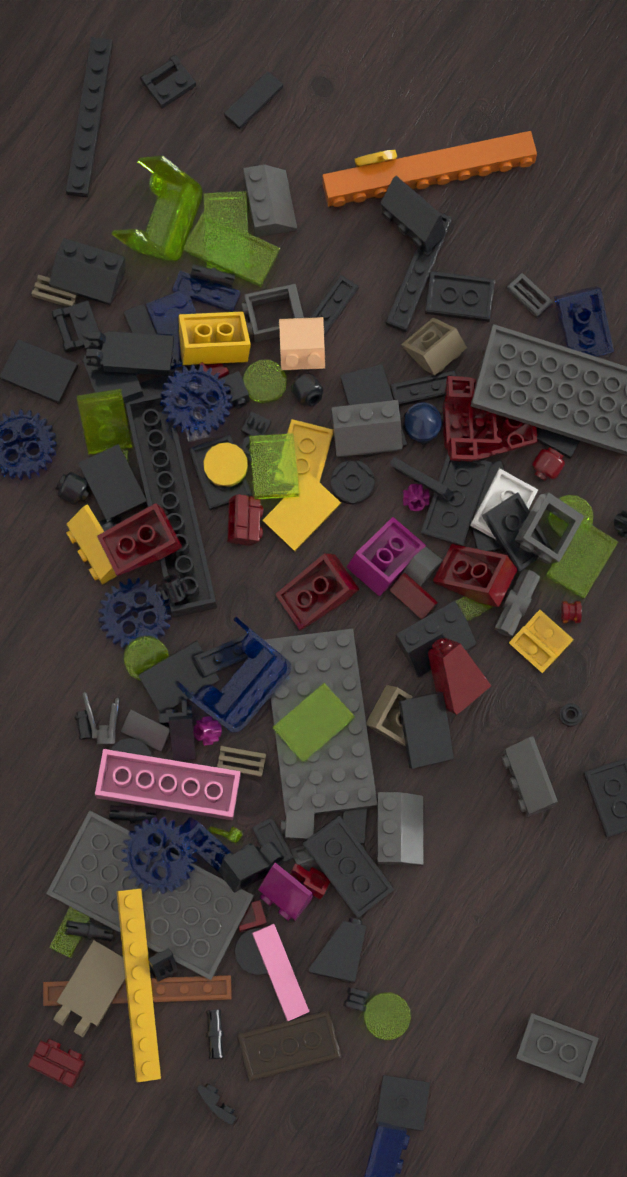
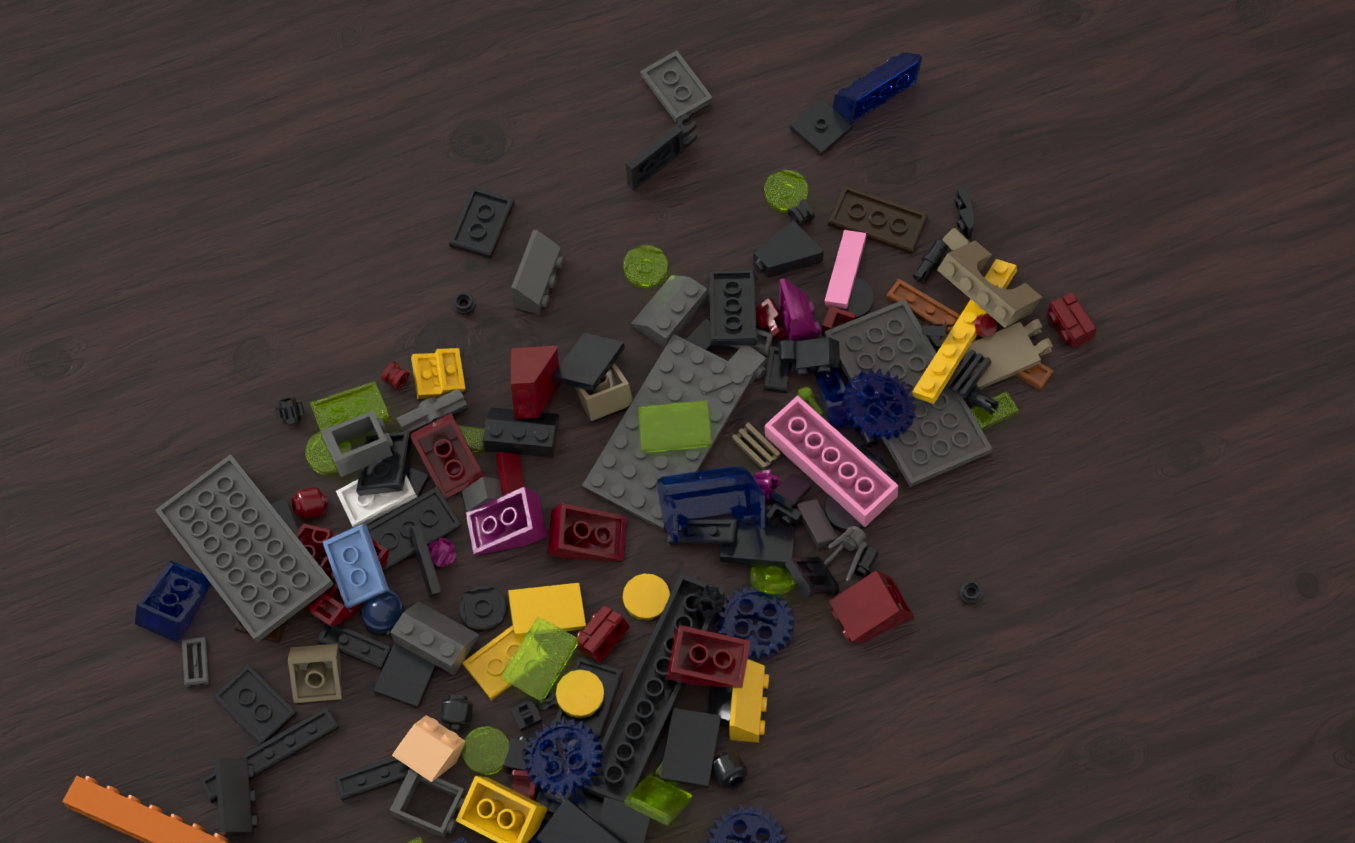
camera: 140 degrees left, 10 degrees down
(51, 687) = (870, 608): none -> dark red slope
(98, 943) = (965, 371): none -> black tile
(120, 680) = (812, 569): none -> black plate
(122, 997) = (985, 325): none -> dark red tile
(173, 1030) = (1005, 305): none -> dark tan arch
(203, 1070) = (955, 239): none -> dark tan slope
(235, 577) = (645, 596): none -> yellow tile
(451, 857) = (645, 266): none -> clear neon green tile
(465, 430) = (355, 566): none -> medium blue tile
(515, 966) = (660, 152): none -> black tile

